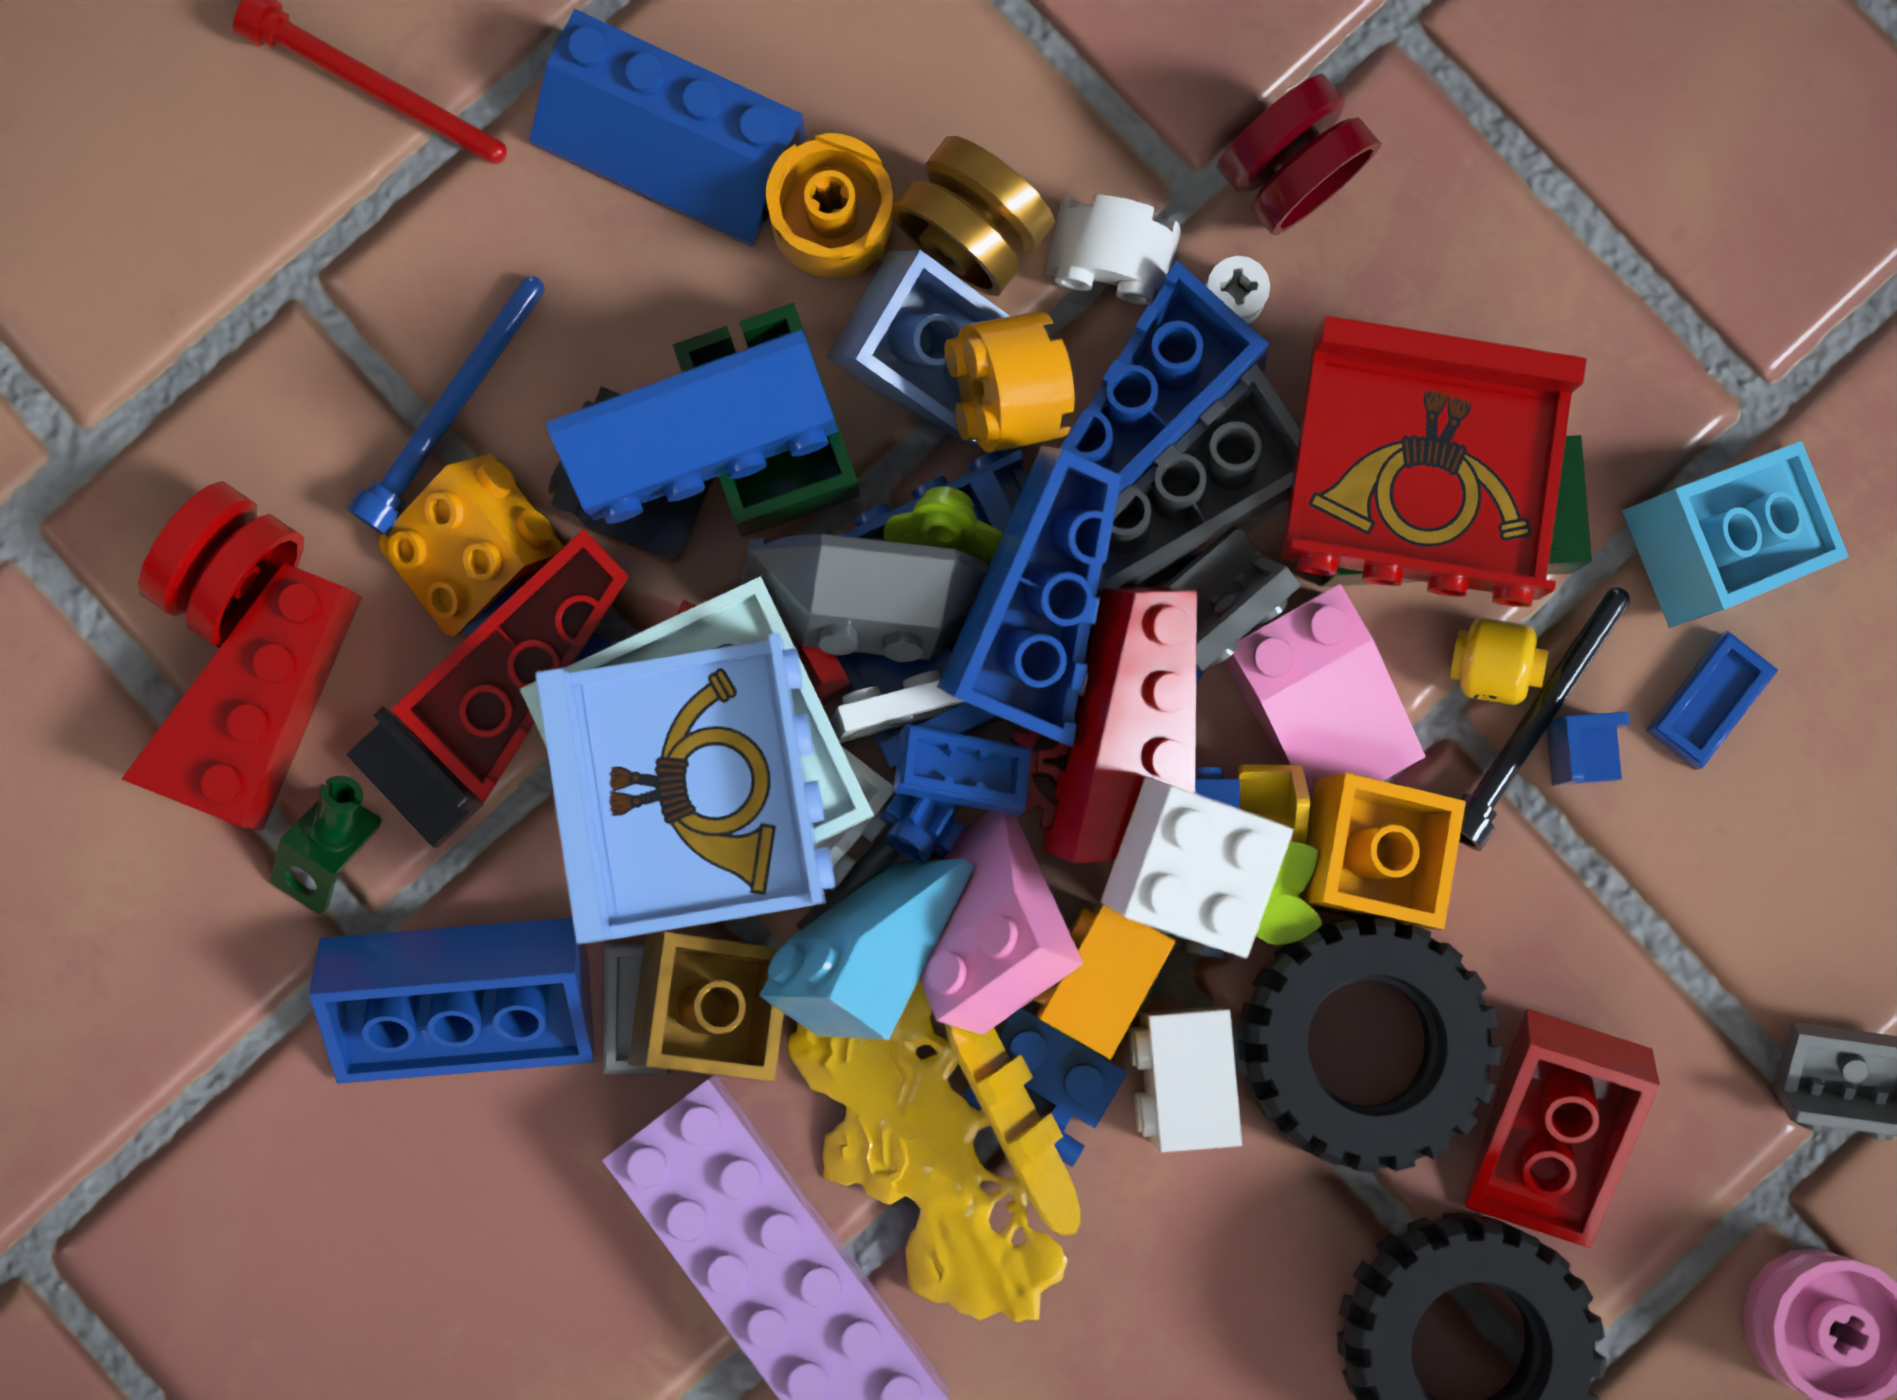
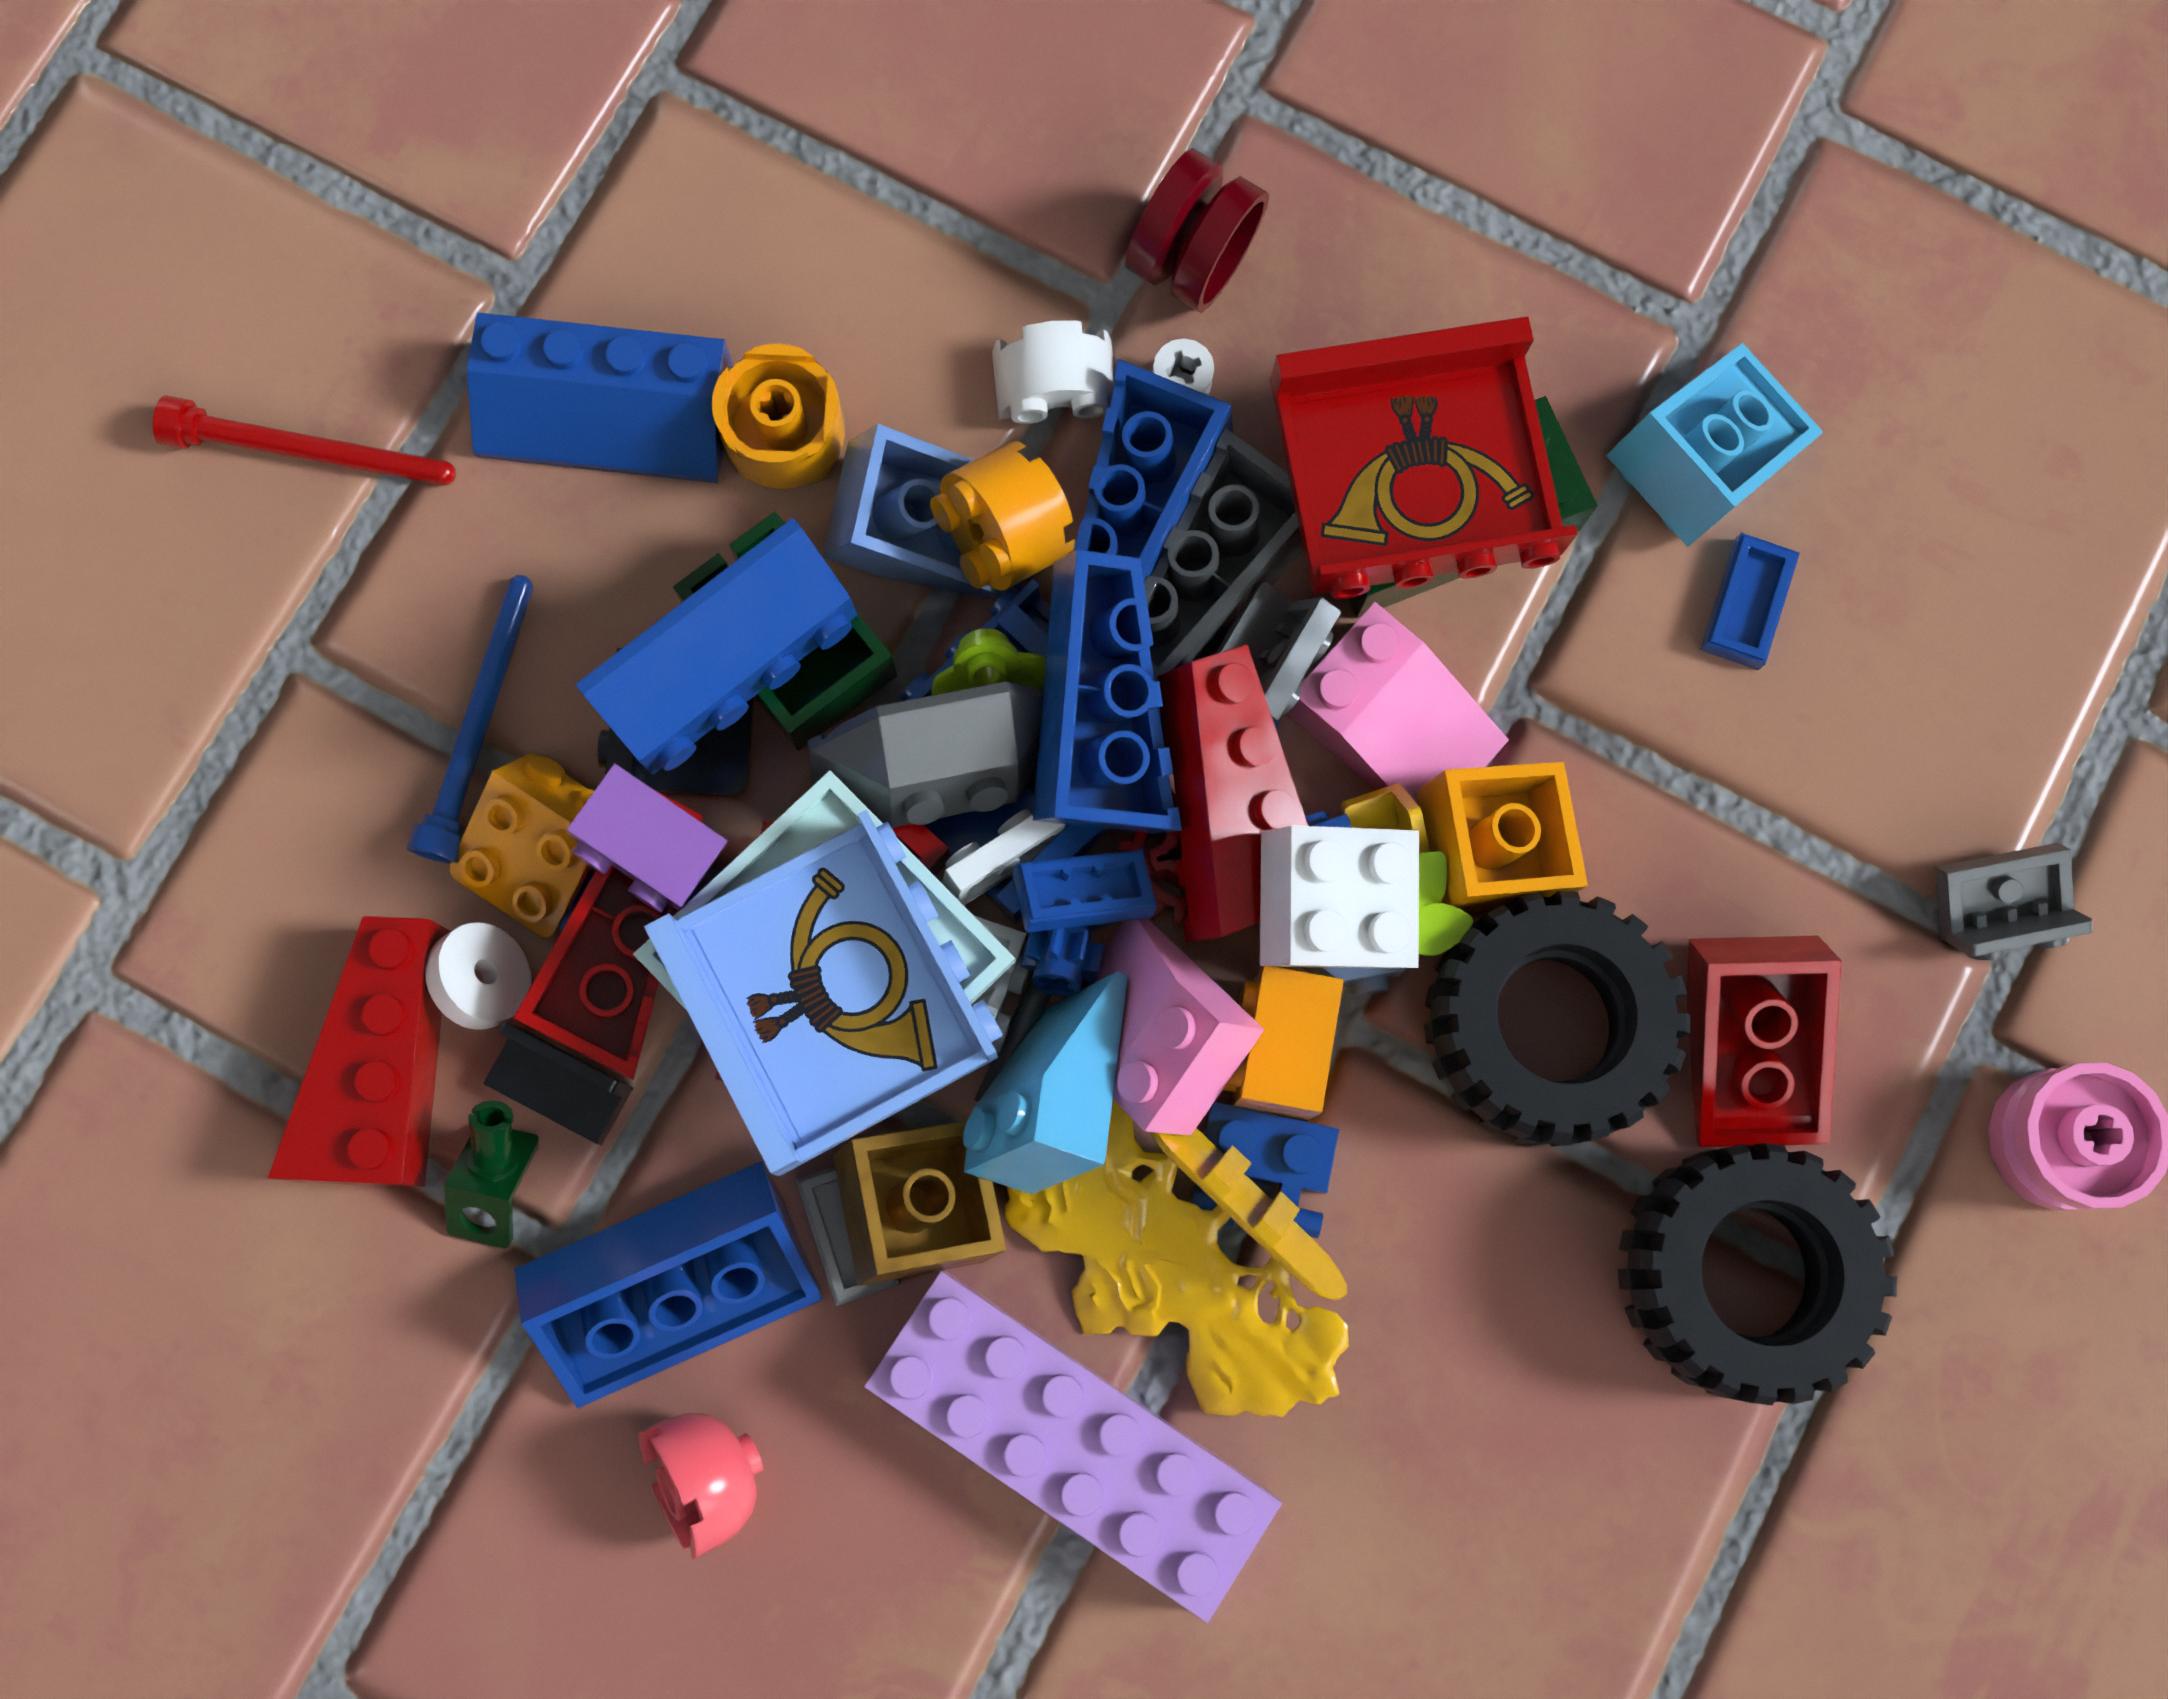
camera: 20 degrees left, 5 degrees down
(216, 560) = (294, 935): red wheel -> none
(349, 659) = (454, 983): none -> white piece
(429, 1189) = (702, 1478): none -> coral cylinder
(566, 586) = (644, 839): none -> medium lavender brick
(973, 215) = (916, 377): pearl gold wheel -> none
(1187, 1079) = (1398, 1110): white brick -> none
(1479, 806) = (1599, 669): black piece -> none
(1498, 661) = (1544, 628): yellow head -> none
(1585, 748) = (1652, 680): blue panel -> none

